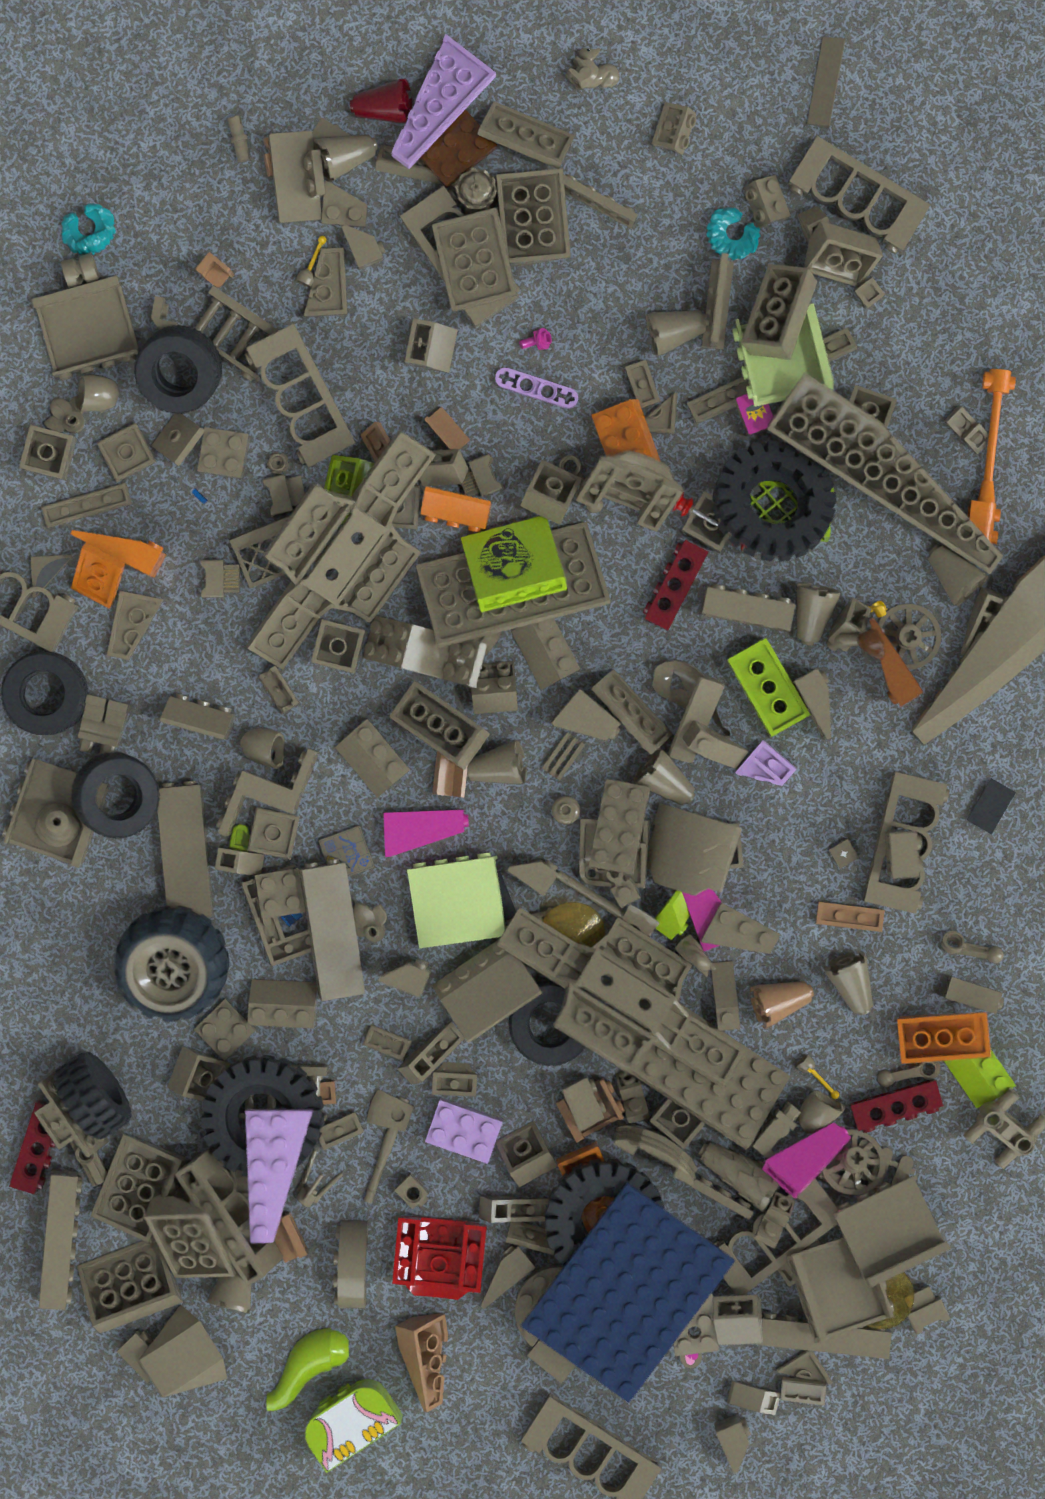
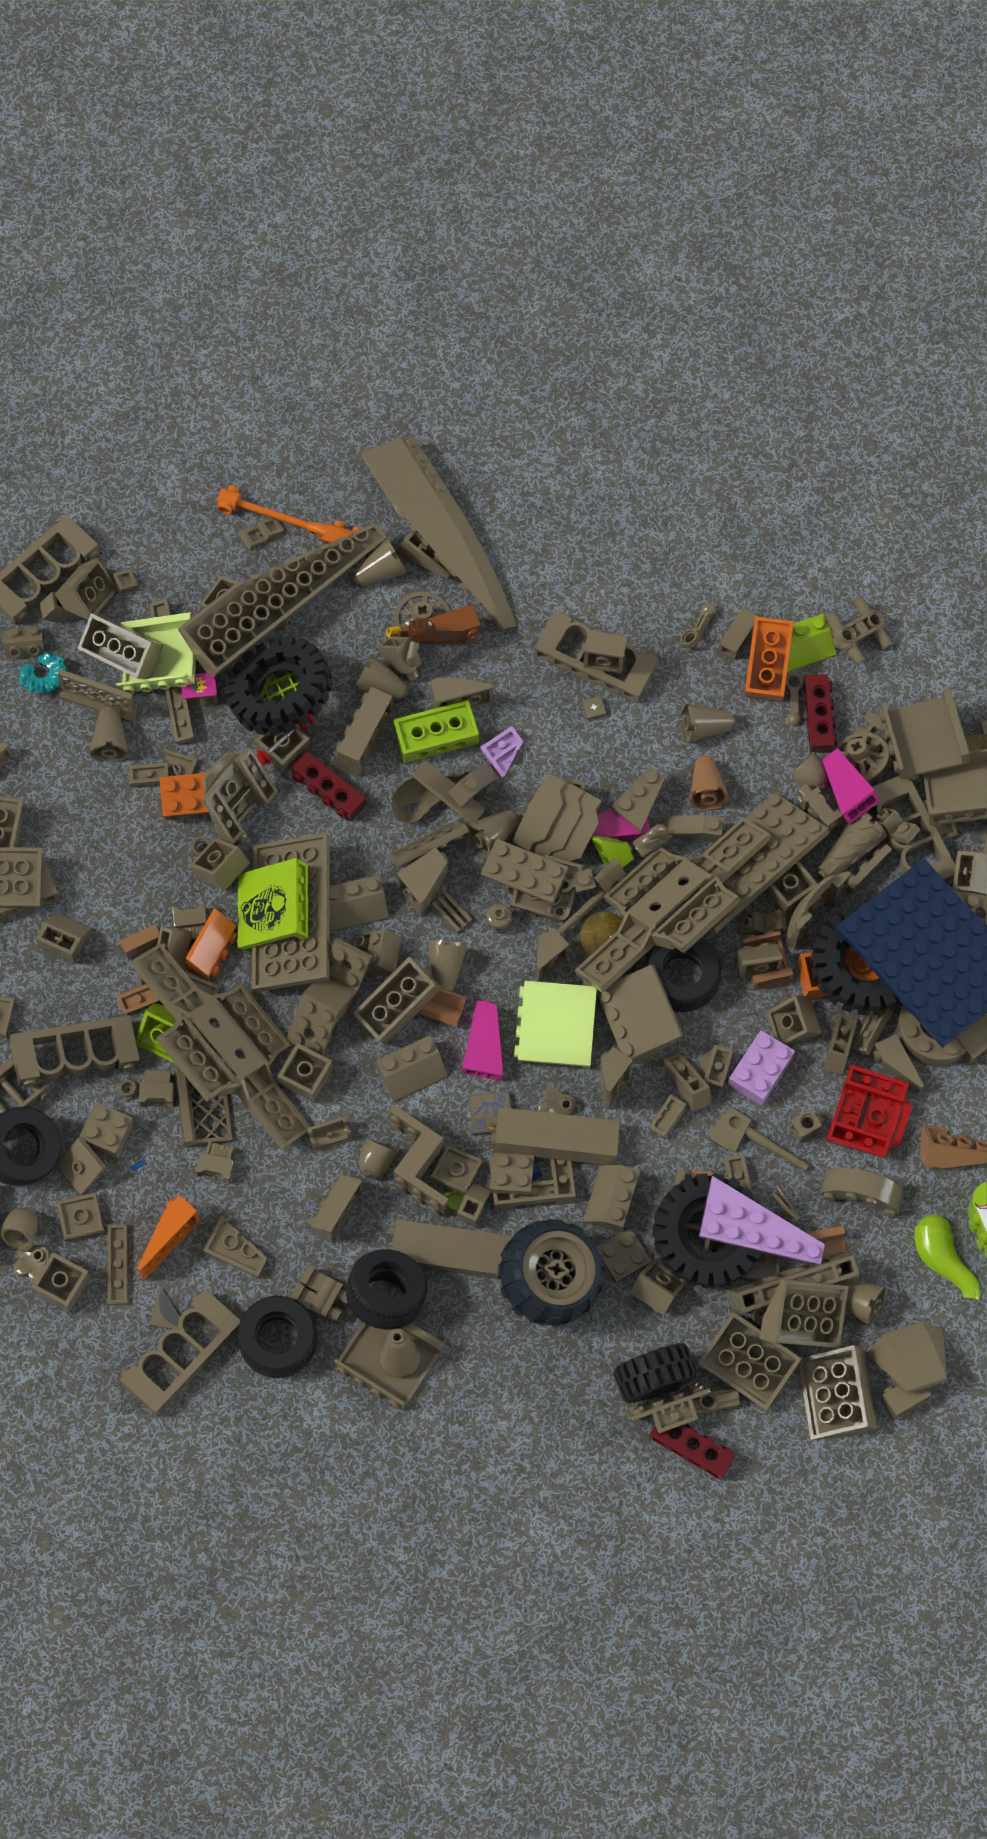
camera: 80 degrees left, 20 degrees down
(58, 1239) = (781, 1442): dark tan brick -> none
(97, 575) = (184, 1260): orange plate -> none
(538, 384) = (123, 859): lavender beam -> none
(541, 338) = (85, 846): dark pink plate -> none
(807, 1065) = (770, 776): hinge -> none
(850, 916) = (648, 714): medium nougat plate -> none
(991, 806) = (582, 584): black piece -> none

